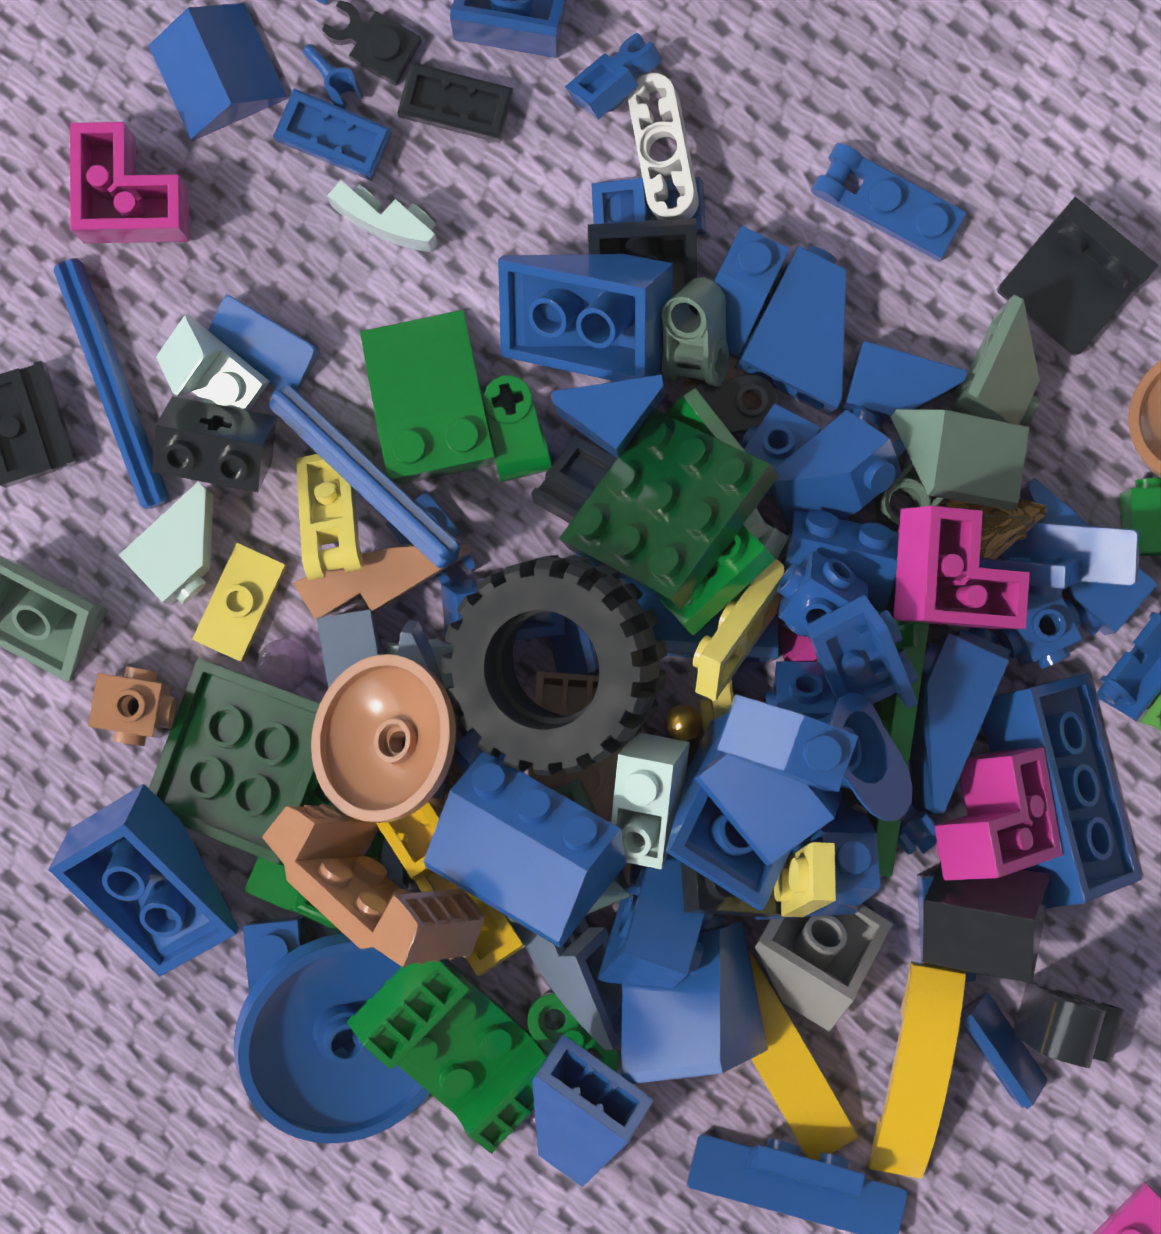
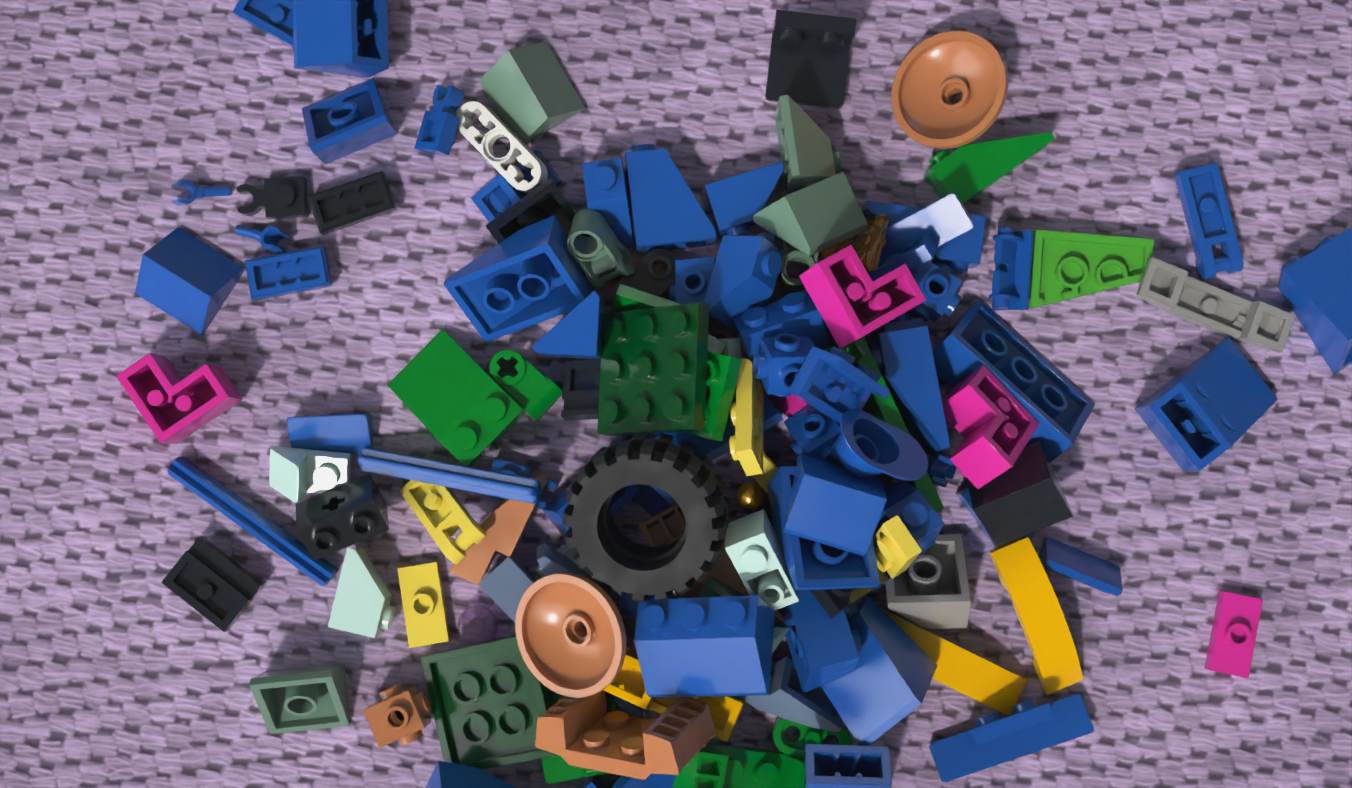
camera: 35 degrees left, 0 degrees up
(396, 224) = (365, 303): light aqua slope -> none
(737, 108) = (531, 91): none -> sand green slope
(787, 743) = (827, 473): slope -> none
(889, 203) = (664, 88): blue plate -> none
(1068, 1026) = (1112, 528): black beam -> none

